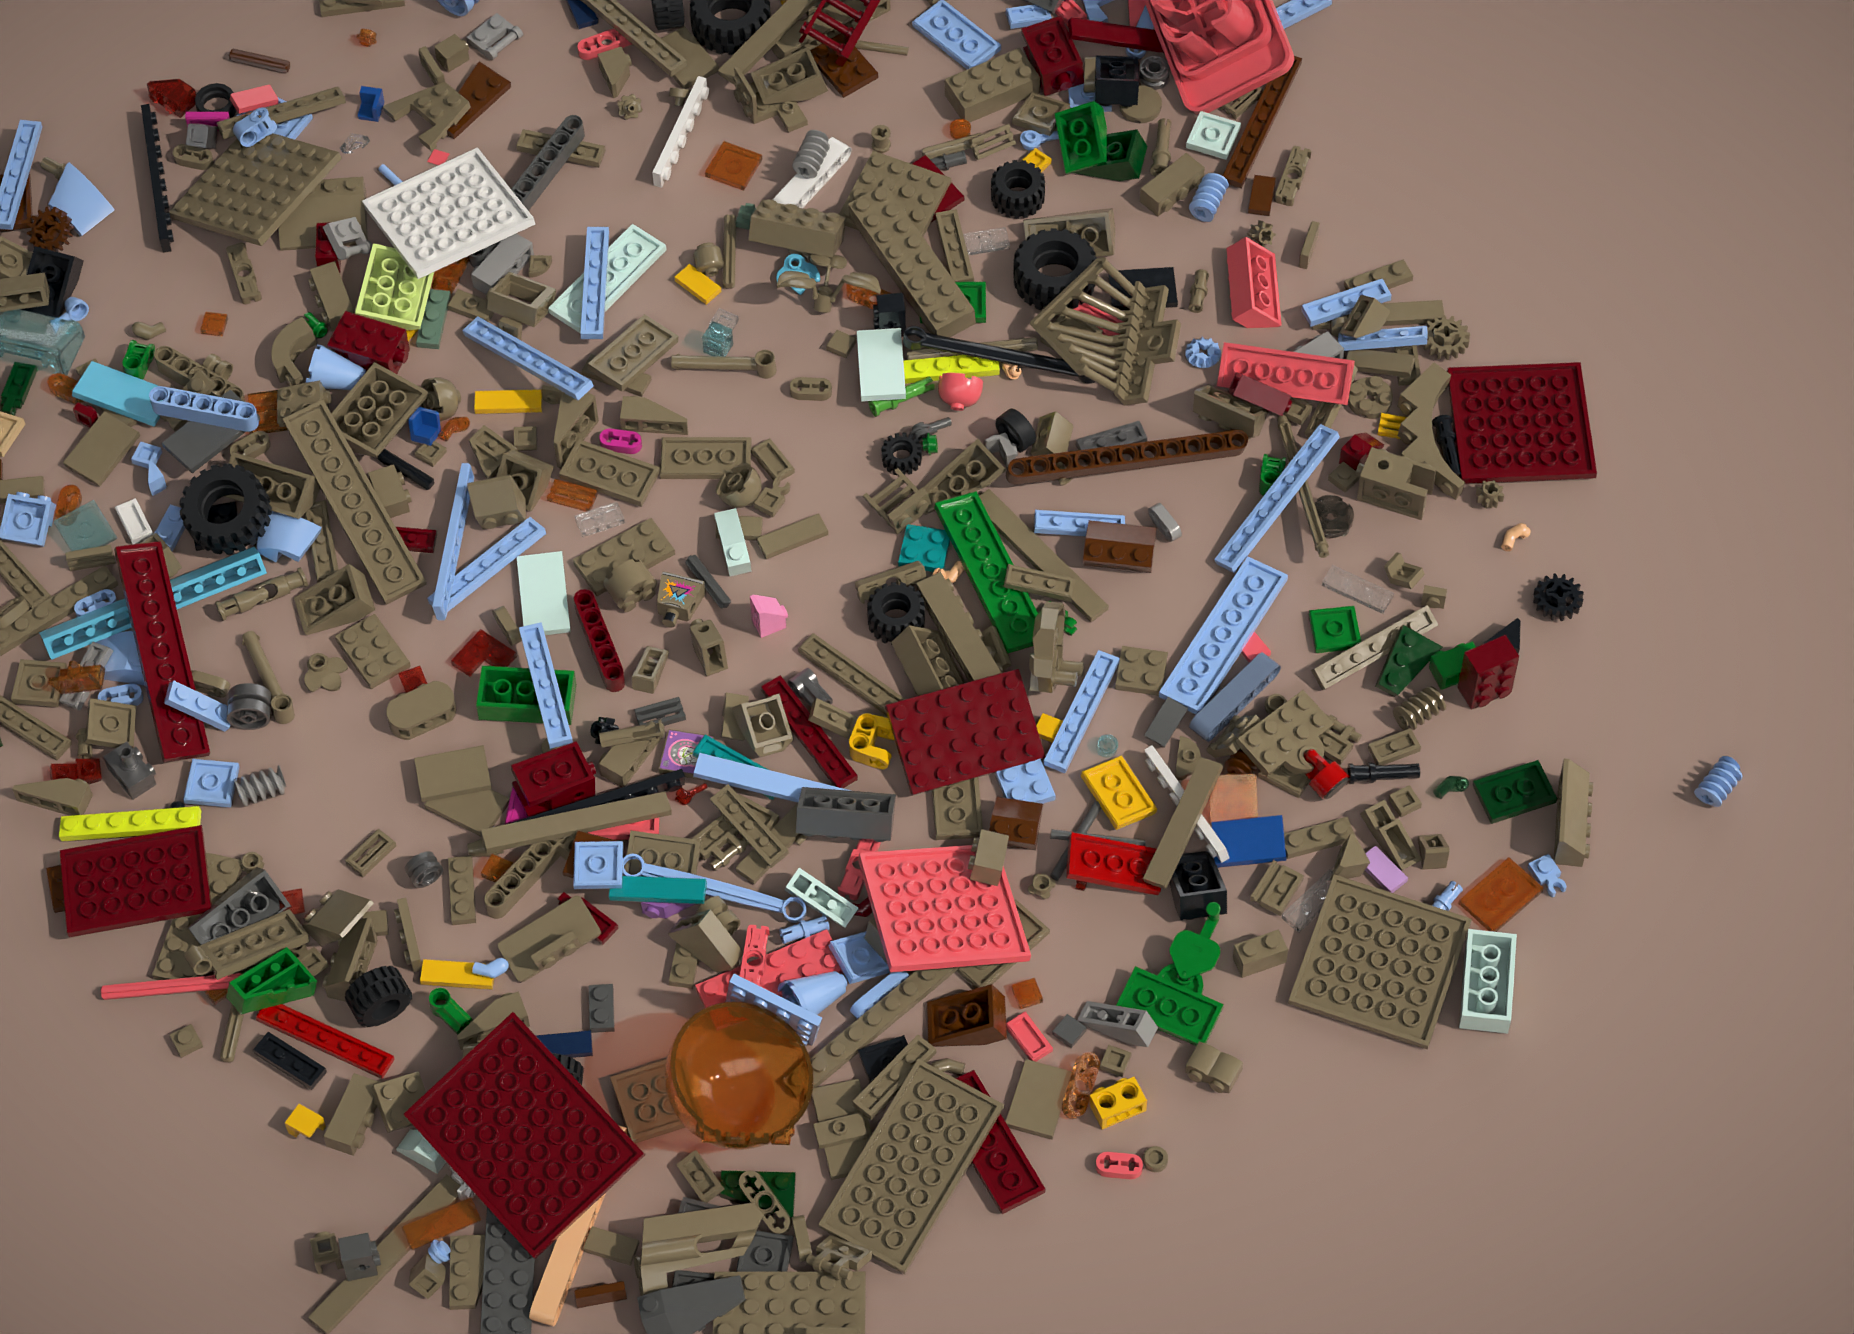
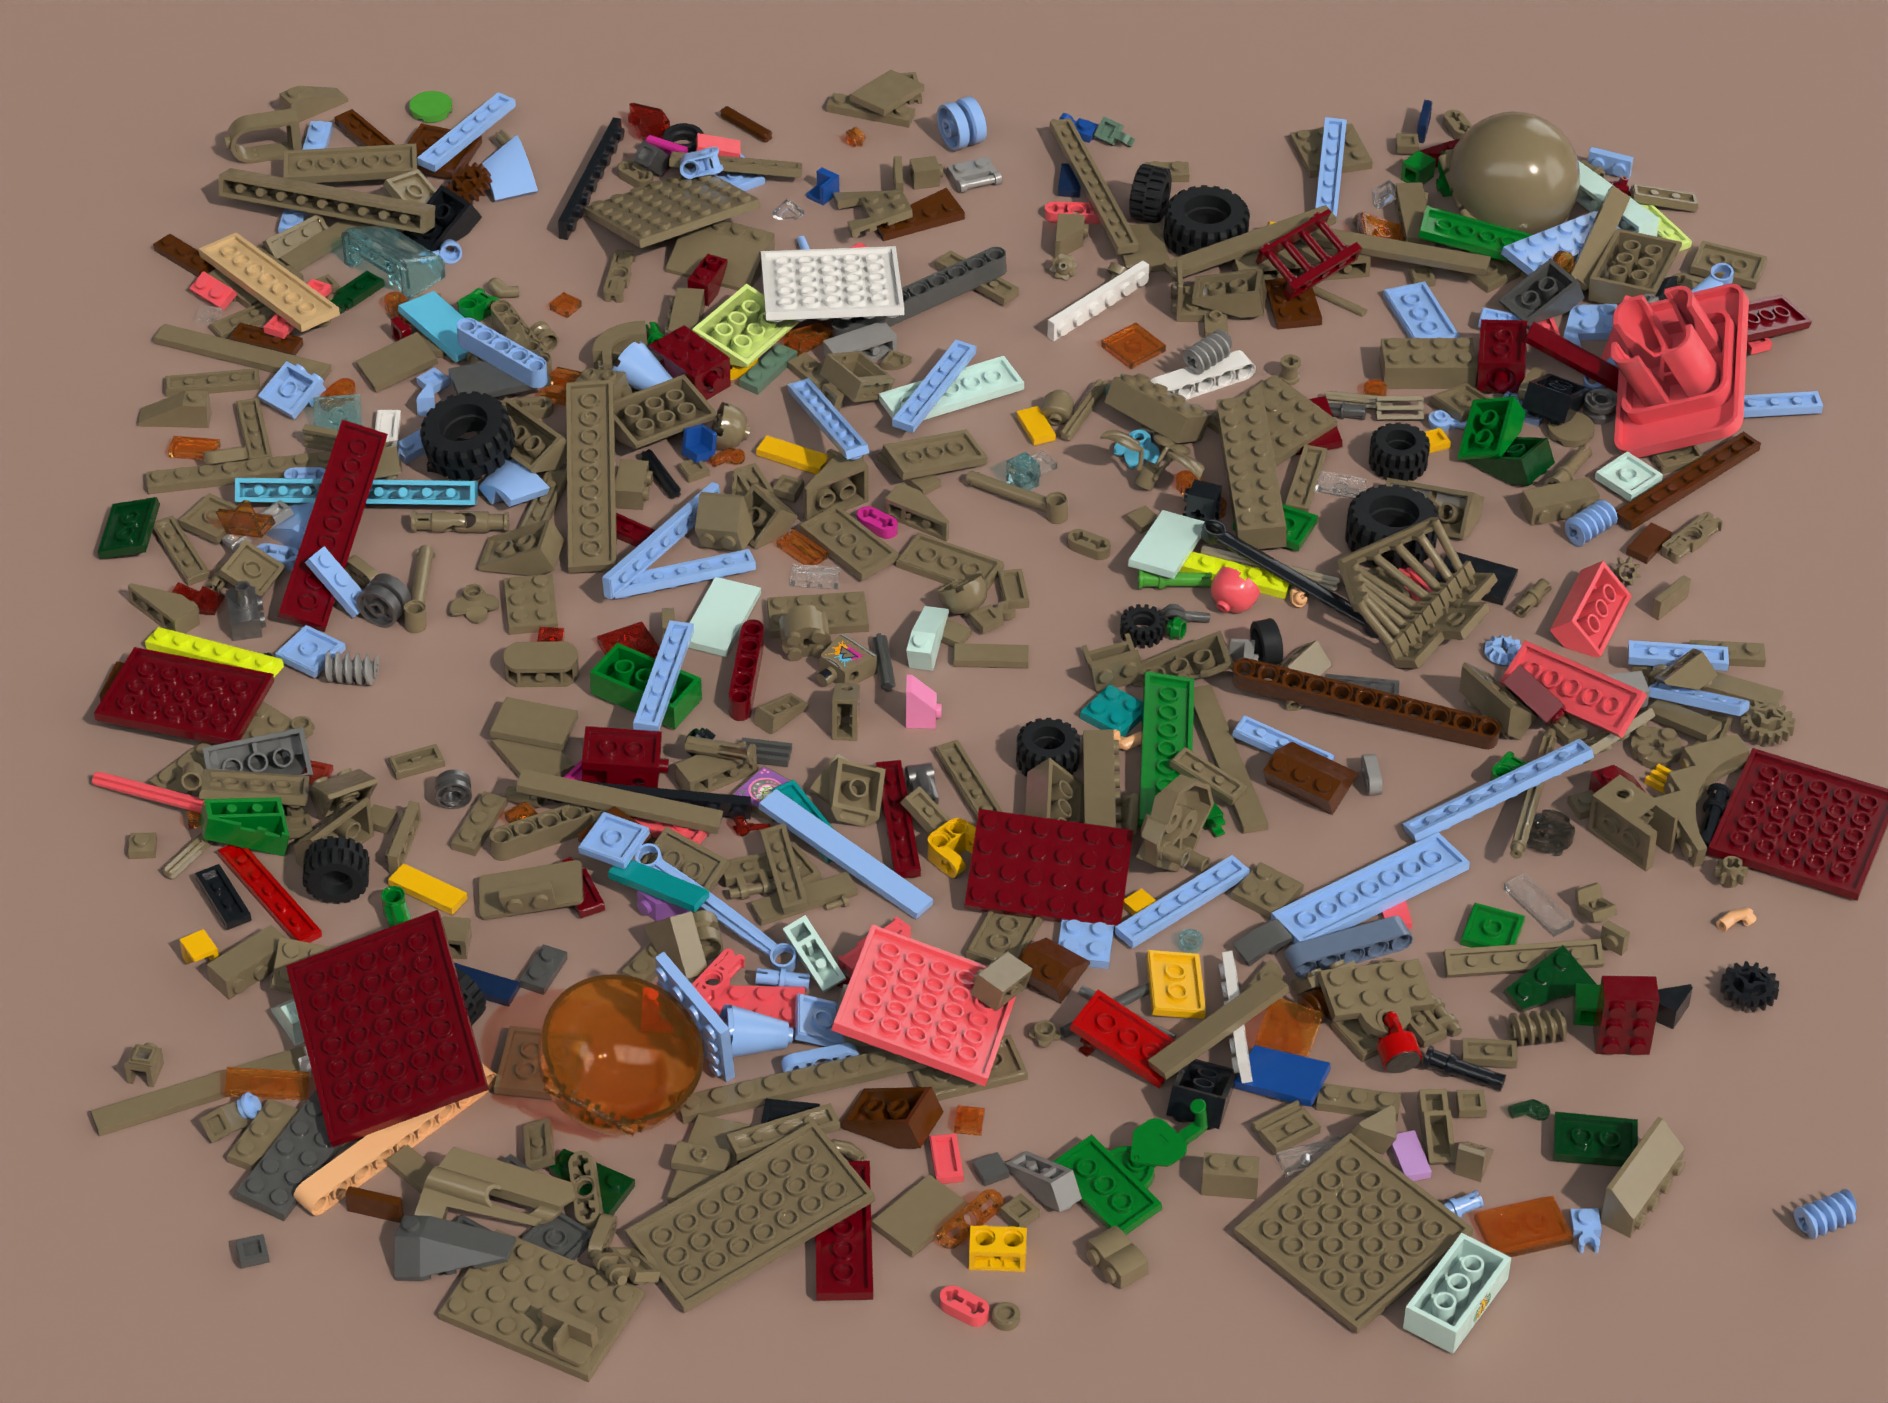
camera: 25 degrees right, 15 degrees down
(345, 232) = (726, 268): light grey plate -> none
(359, 1256) = (166, 1071): dark grey brick -> none
(492, 969) = (460, 894): light blue arm -> none
(845, 814) = (883, 893): dark grey slope -> none
(906, 574) = (1077, 720): dark tan piece -> none

